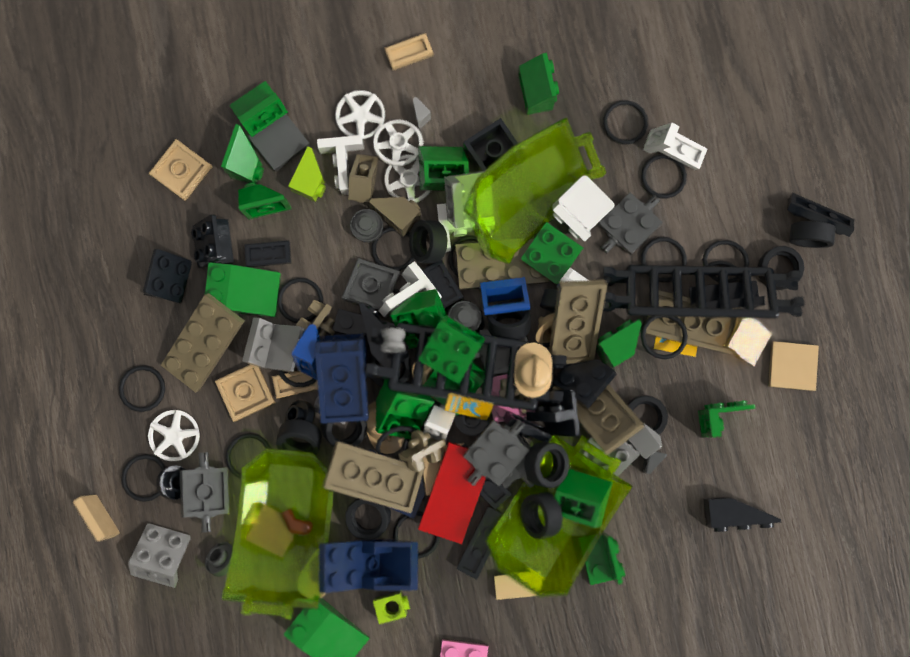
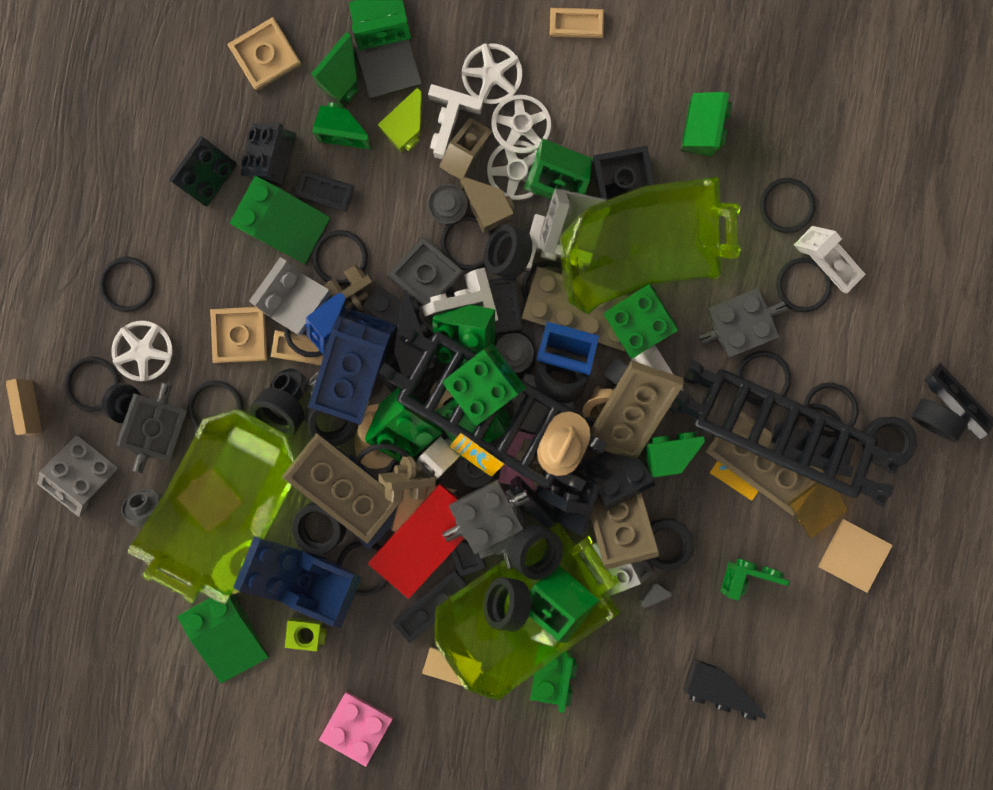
camera: 20 degrees right, 5 degrees up
(202, 342) = (213, 262): dark tan plate -> none
(295, 525) = (237, 505): reddish brown arm -> none
(393, 340) = (423, 349): light grey wheel -> none
(422, 113) = (562, 101): light grey slope -> none
(582, 207) = (695, 283): white bracket -> none
(646, 441) = (656, 572): light grey slope -> none
(660, 356) = (720, 488): black piece -> none

